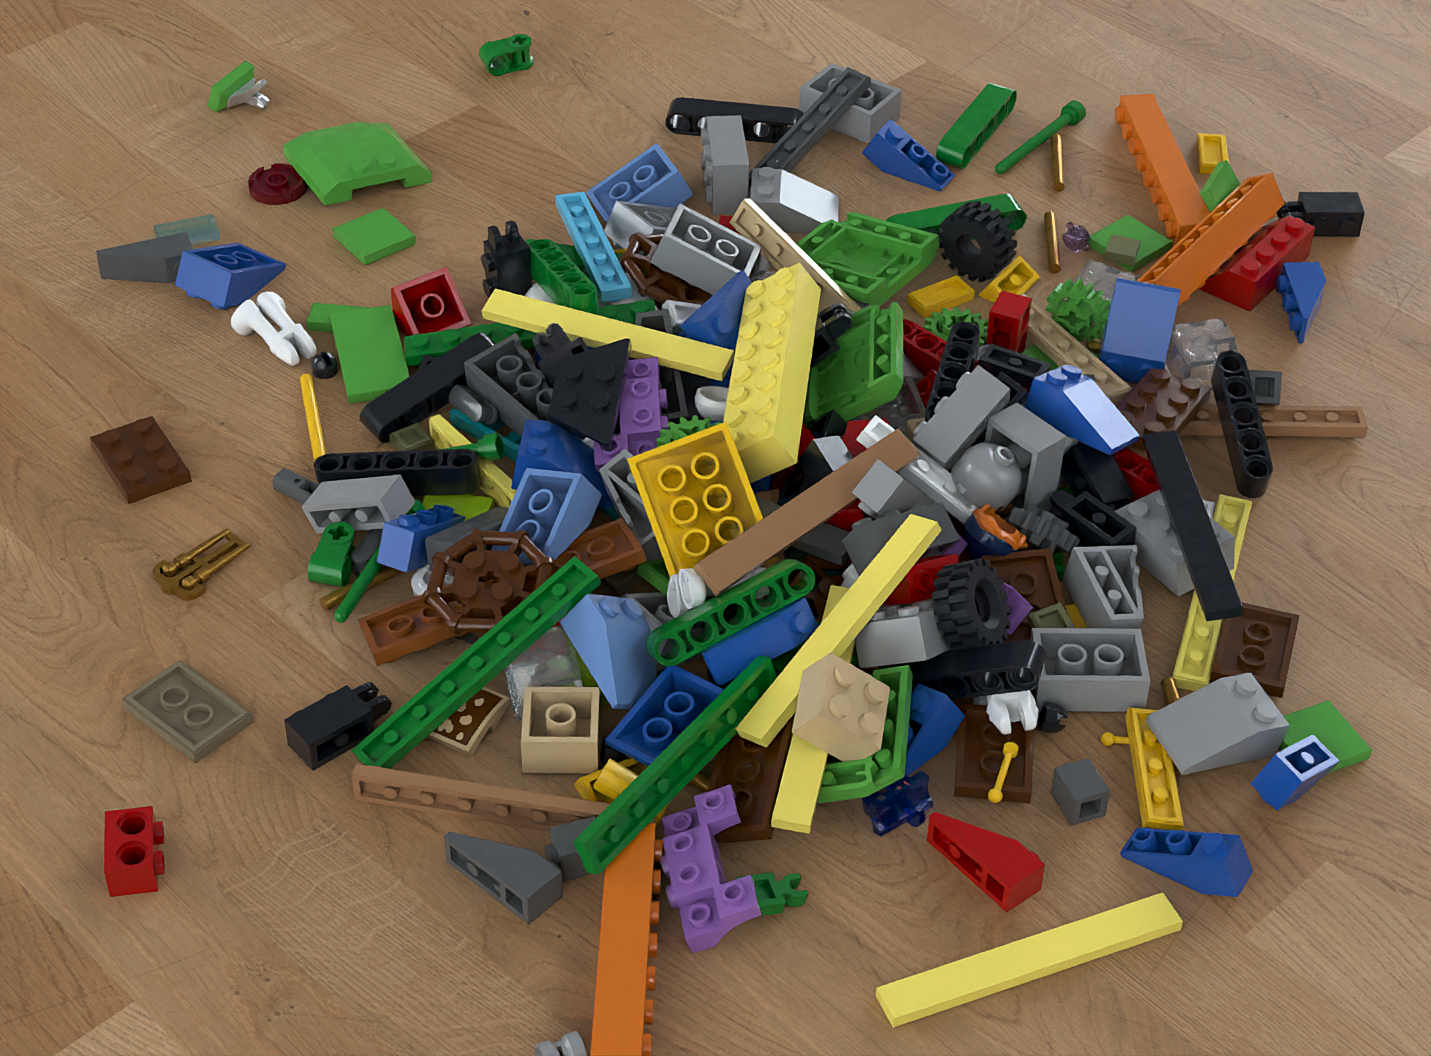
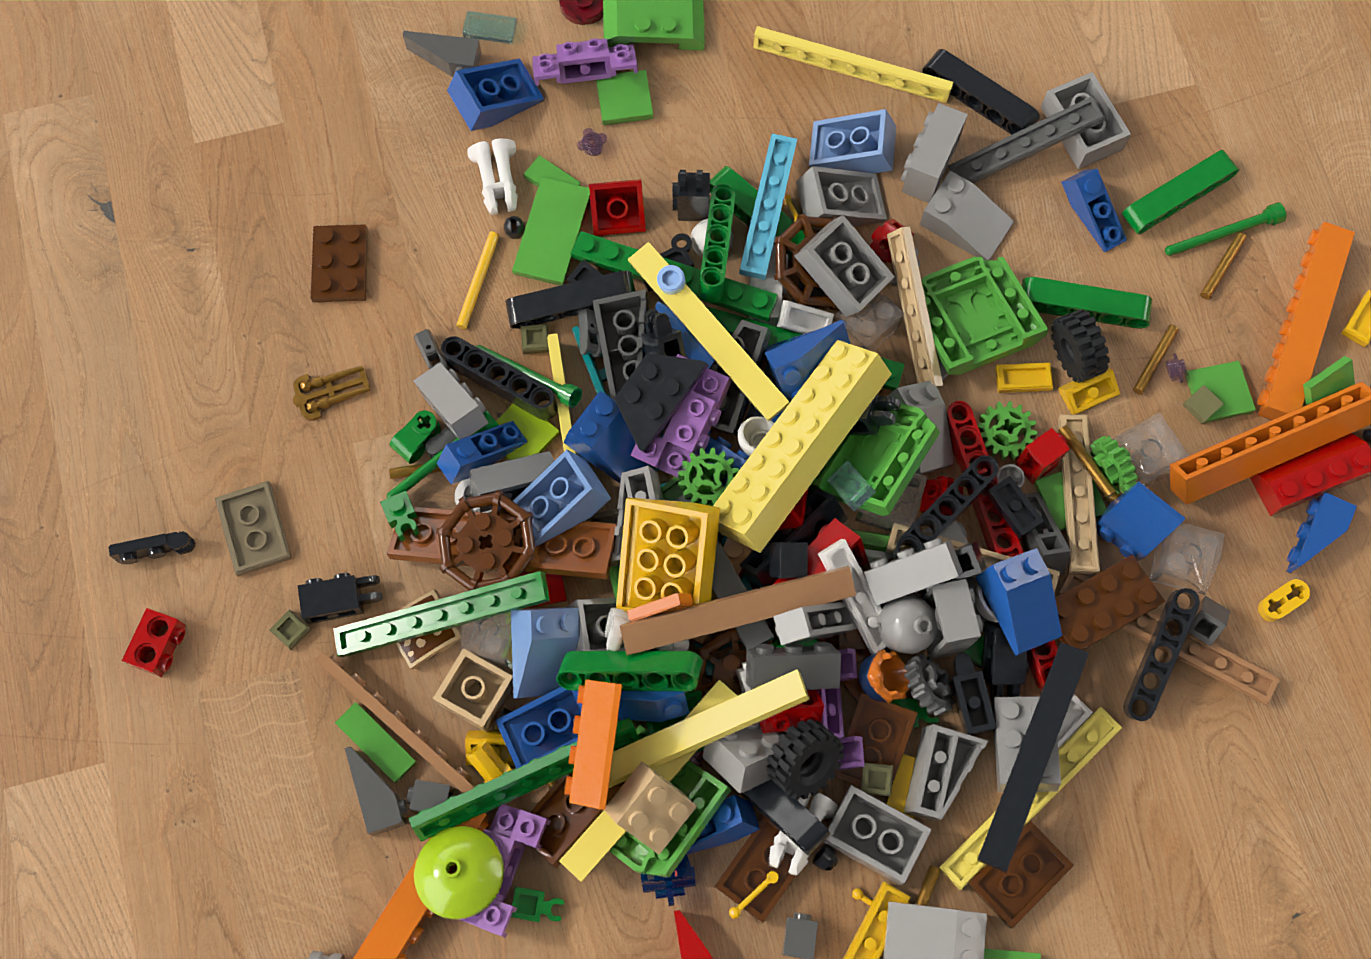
camera: 30 degrees right, 30 degrees up
(69, 767) = (151, 547): none -> black hinge
(295, 780) = (290, 629): none -> olive tile
(315, 215) = (584, 61): none -> medium lavender bracket
(363, 616) = (400, 513): none -> plate
(364, 277) = (592, 148): none -> plate
(436, 823) = (375, 742): none -> bright green tile
(541, 304) = (671, 279): none -> light blue tile
(591, 139) = (852, 64): none -> light yellow tile
(664, 878) = (472, 885): none -> lime dish
(736, 523) = (661, 606): none -> tile
(745, 666) = (595, 743): none -> orange slope
(846, 389) = (851, 486): none -> clear light blue tile
(1063, 321) = (1087, 461): none -> pearl gold bar
(1310, 356) = (1287, 605): none -> yellow beam

